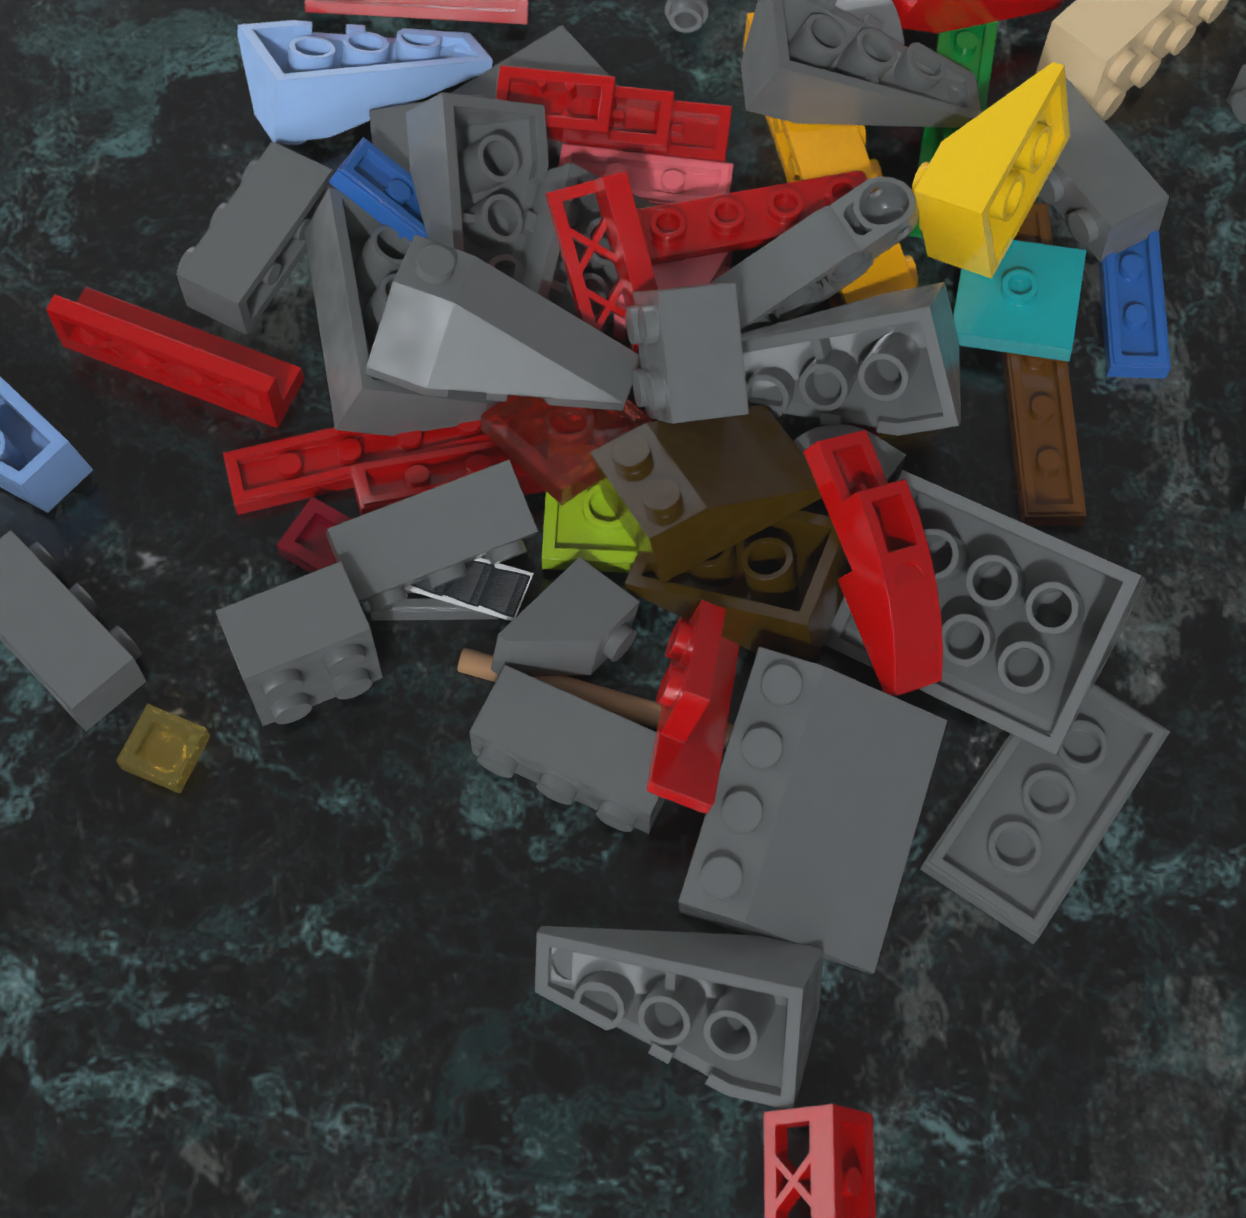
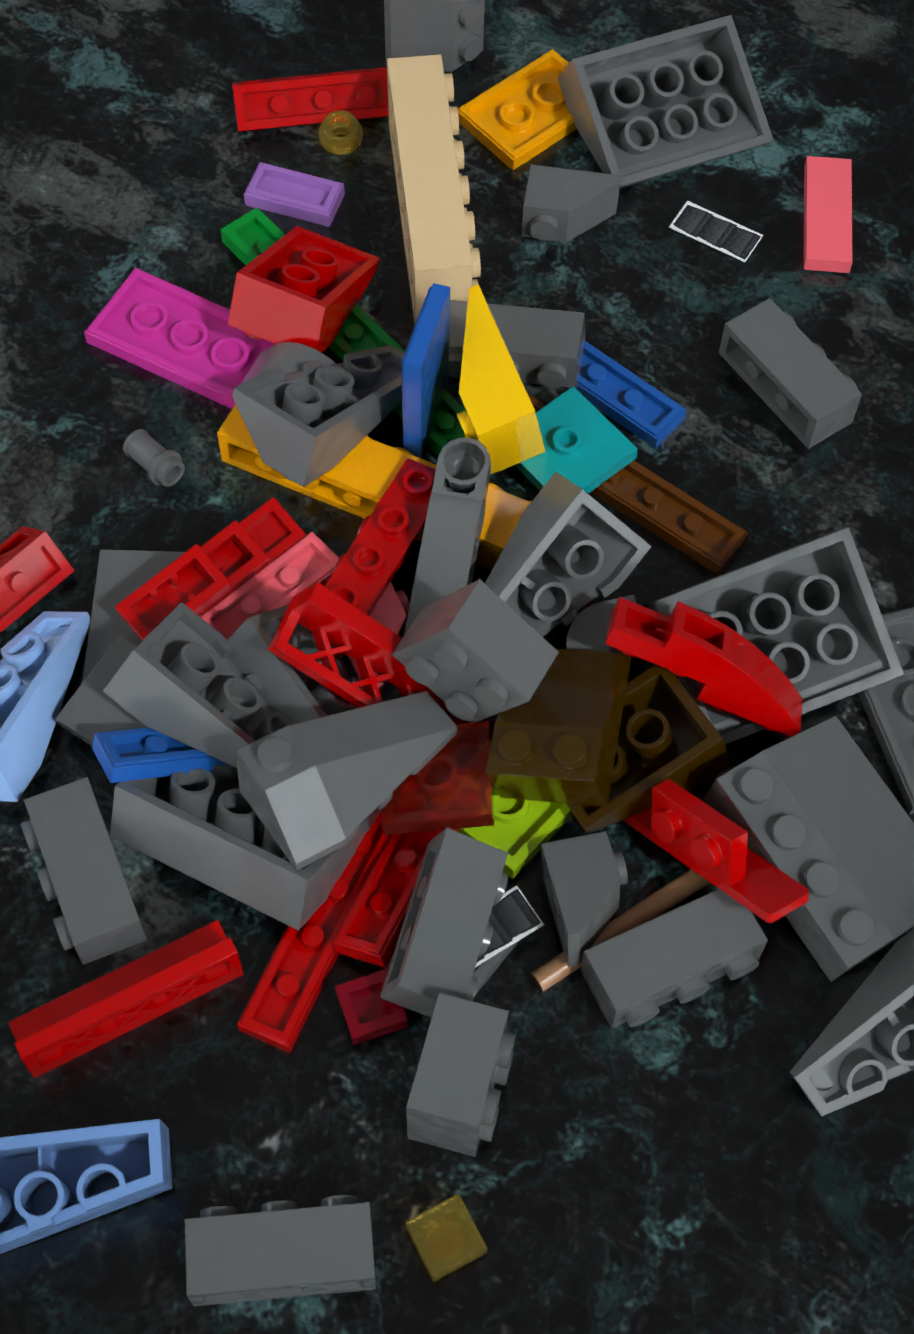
camera: 50 degrees left, 5 degrees down
(944, 93) = (426, 369): none -> blue tile

